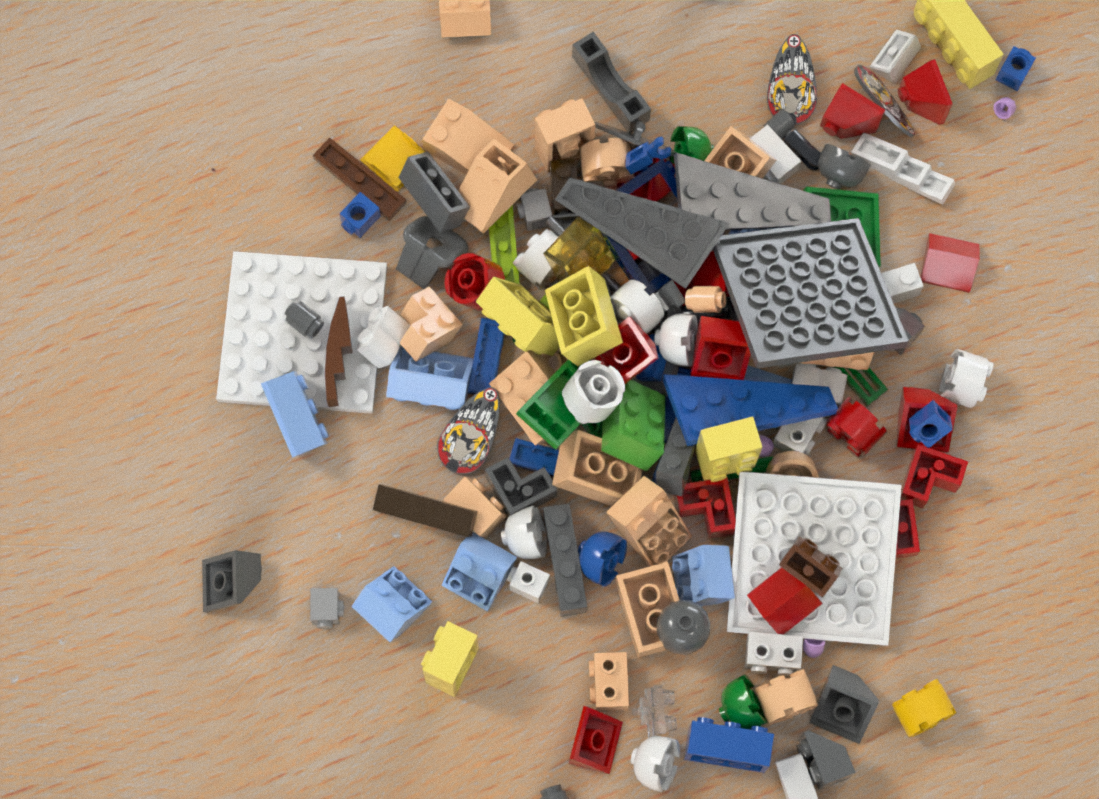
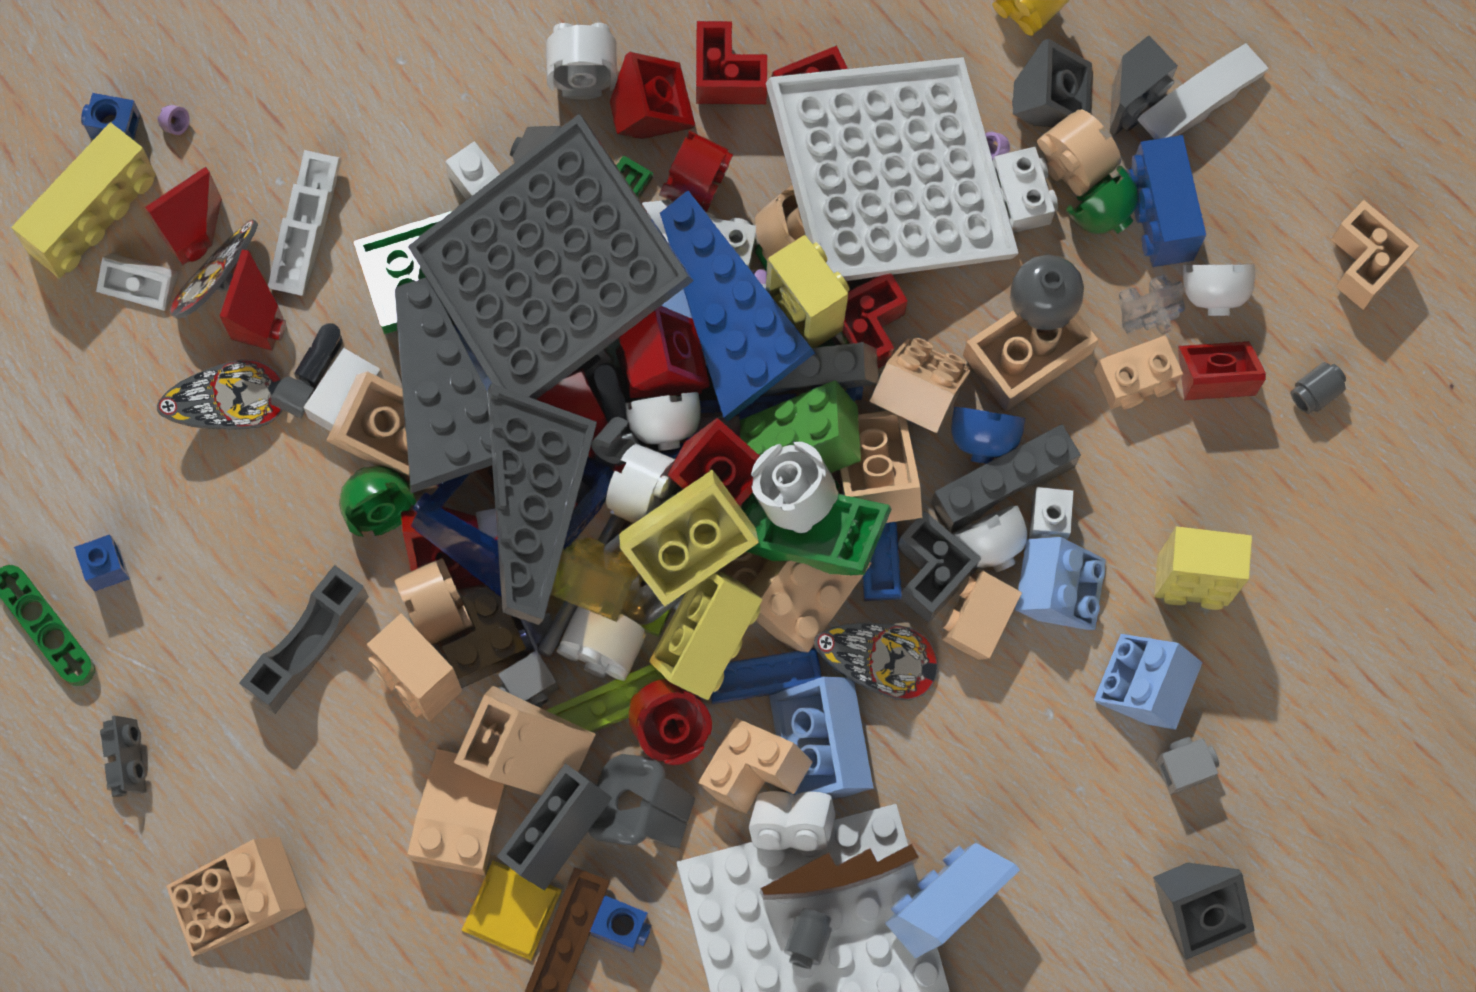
camera: 110 degrees left, 0 degrees up
(425, 510) = (1012, 678): dark brown tile -> none
(633, 138) = (382, 571): dark grey shield -> none
(643, 155) = (415, 546): blue plate -> none
(704, 575) = (961, 299): light blue slope -> none
(705, 299) = (602, 392): light nougat brick -> none
(783, 600) = (957, 190): red slope -> none
(811, 566) = (914, 157): reddish brown brick -> none
(841, 168) = (335, 294): dark grey cylinder -> none
(930, 414) = (665, 78): blue brick -> none
(950, 262) = (417, 127): slope -> none

